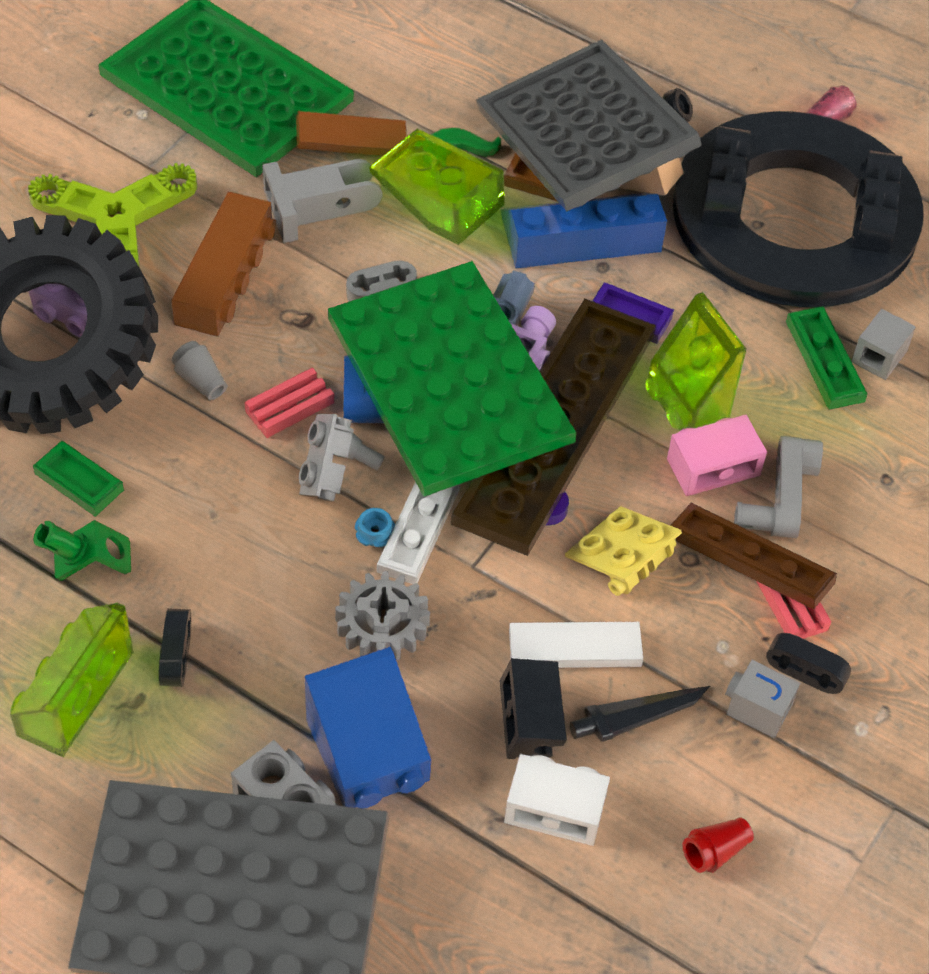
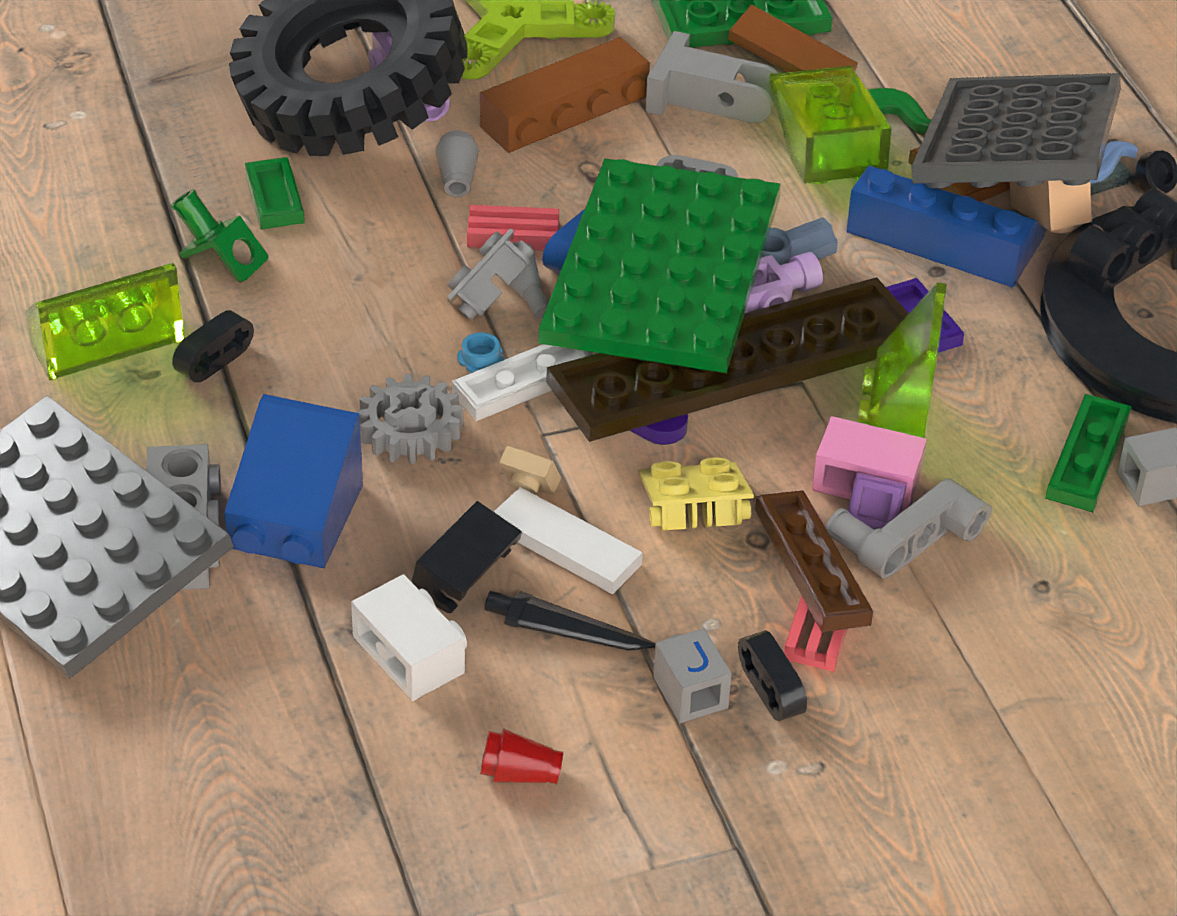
camera: 40 degrees right, 10 degrees down
(508, 607) = (529, 471): none -> tan plate
(748, 482) = (876, 499): none -> medium lavender tile

